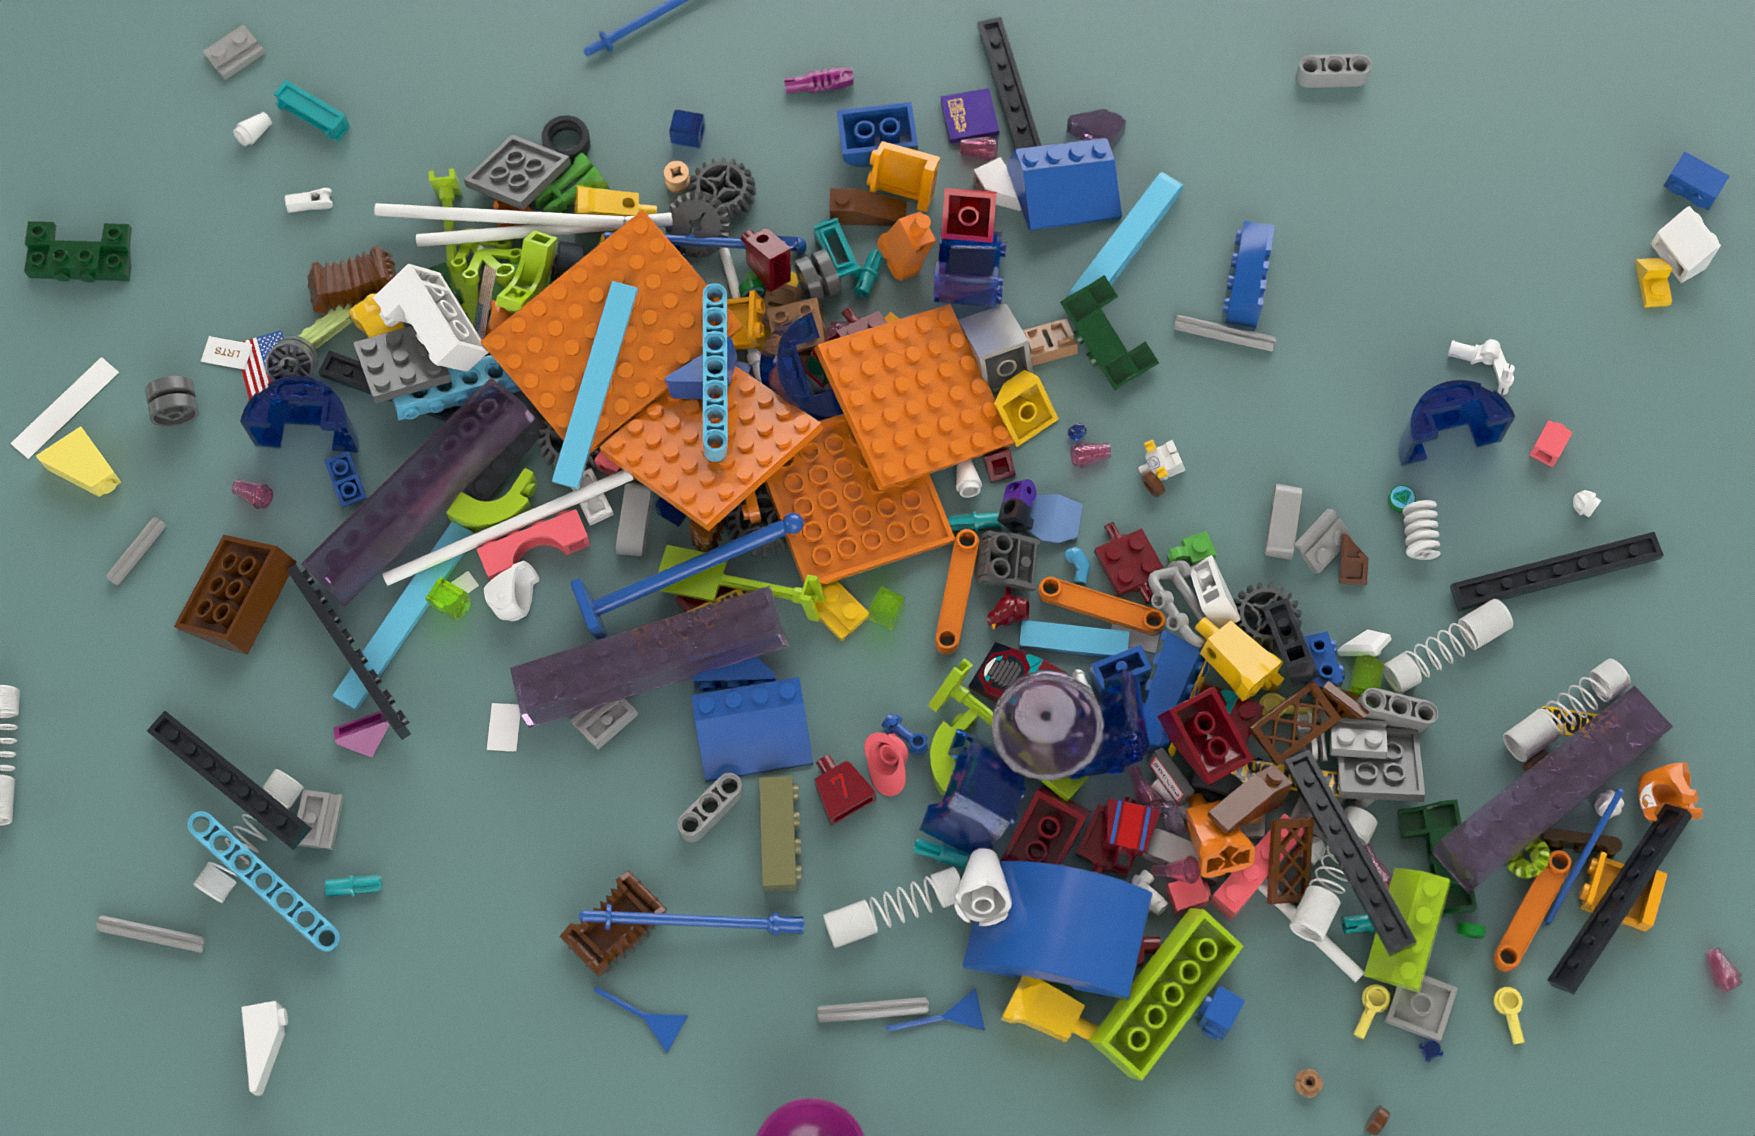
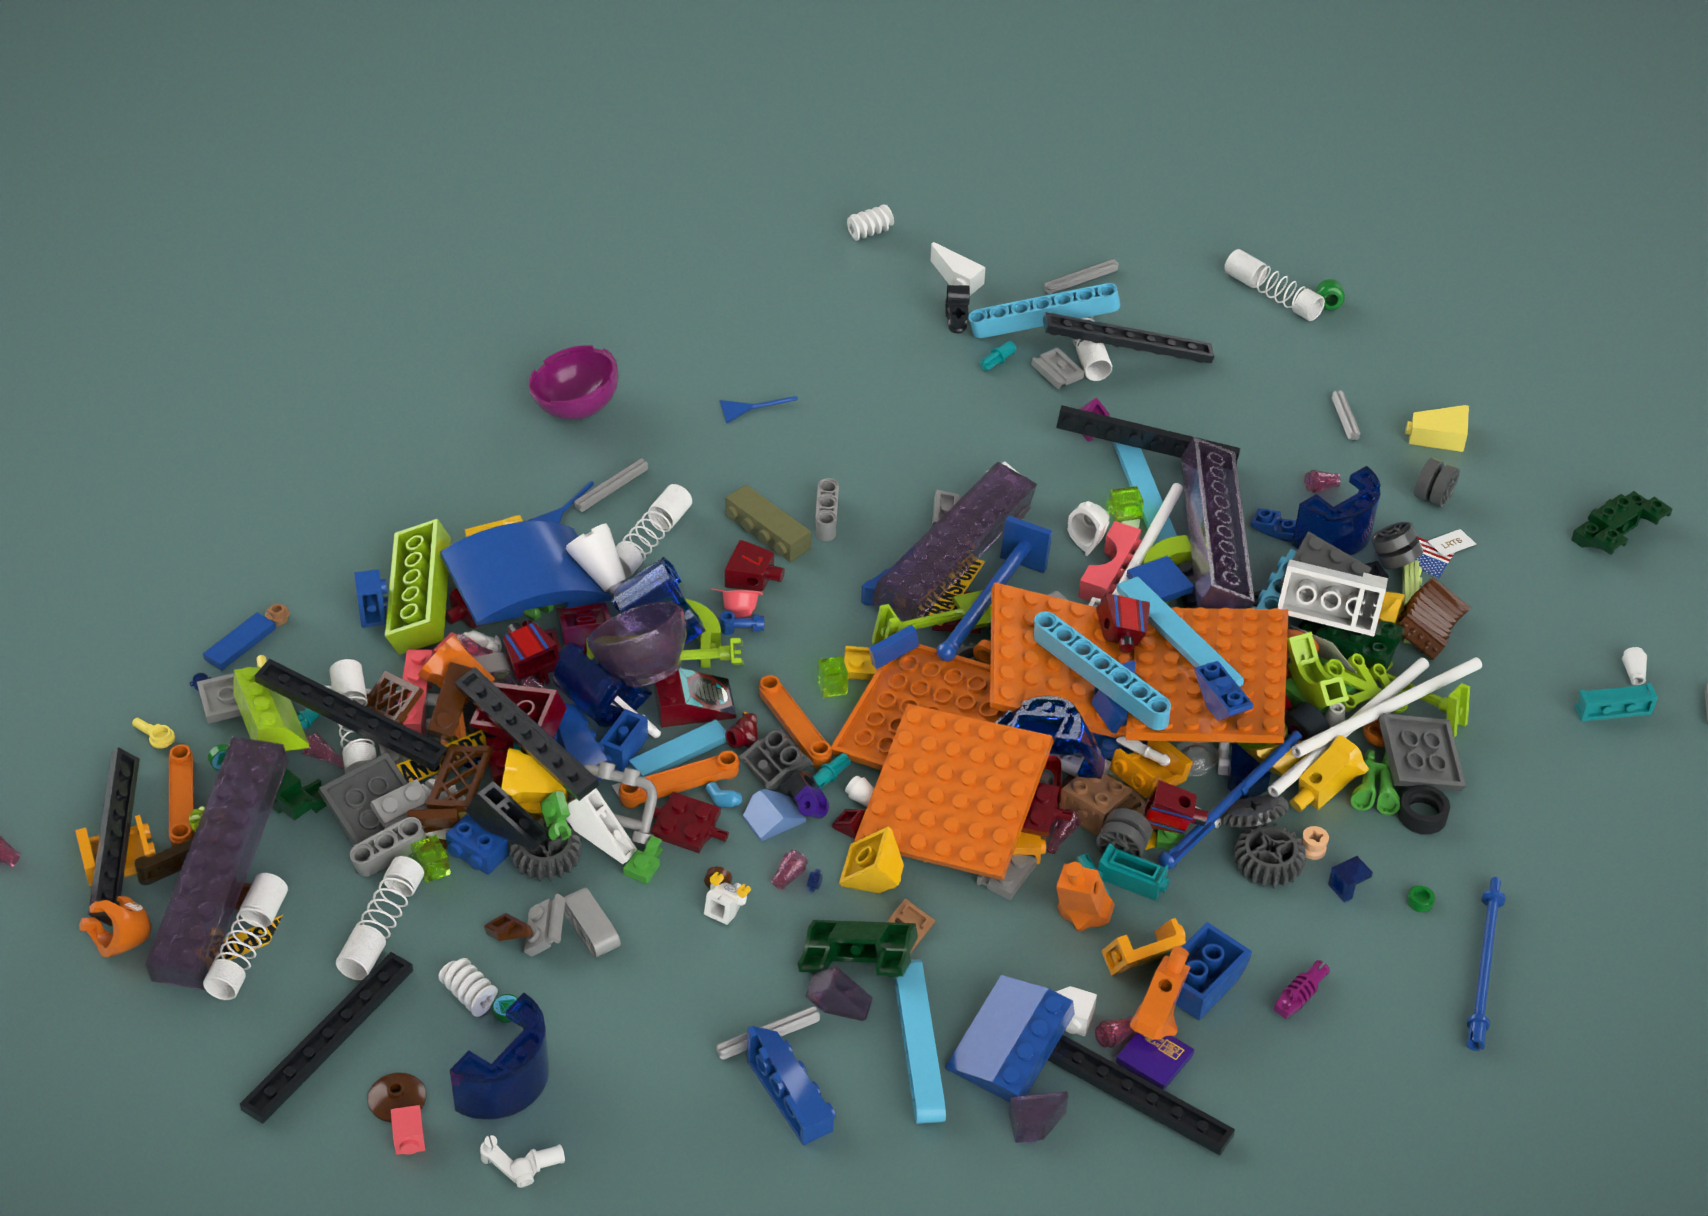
camera: 135 degrees right, 25 degrees down
(64, 408) = (1499, 455): white sticker -> none
(235, 593) = (1255, 428): reddish brown slope -> none
(305, 201) = (1534, 651): white bar -> none
(324, 975) = (957, 307): none -> black piece
(527, 476) = (1163, 578): none -> blue tile
(601, 946) = (818, 425): reddish brown piece -> none
(626, 428) = (1123, 620): none -> dark red torso
(651, 84) = (1421, 898): none -> green tile
(654, 264) = (1221, 692): none -> blue slope
(752, 729) = (847, 563): blue slope -> none
(773, 923) = (720, 482): blue bar -> none
(827, 567) = (894, 646): none -> blue tile
(864, 208) = (1153, 912): reddish brown slope -> none
(940, 123) = (1156, 1012): none -> orange piece
(968, 215) = (1062, 949): red slope -> none
(969, 272) = (1010, 911): clear blue cylinder -> none
(997, 345) = (939, 885): light grey slope -> none
(1151, 318) = (838, 994): none -> clear purple slope
(1229, 687) = (527, 734): none -> black plate
(1247, 613) = (555, 813): none -> bright green plate
(1364, 1075) = (239, 641): none -> blue tile
(1366, 643) = (449, 882): white piece -> none
(1377, 1120) = (211, 619): reddish brown tile -> none
(1530, 497) = (382, 1099): none -> reddish brown dish
(1584, 855) = (162, 841): blue axle -> none
(1585, 502) = (340, 1105): white plate -> none
(1603, 801) = (161, 899): white plate -> none

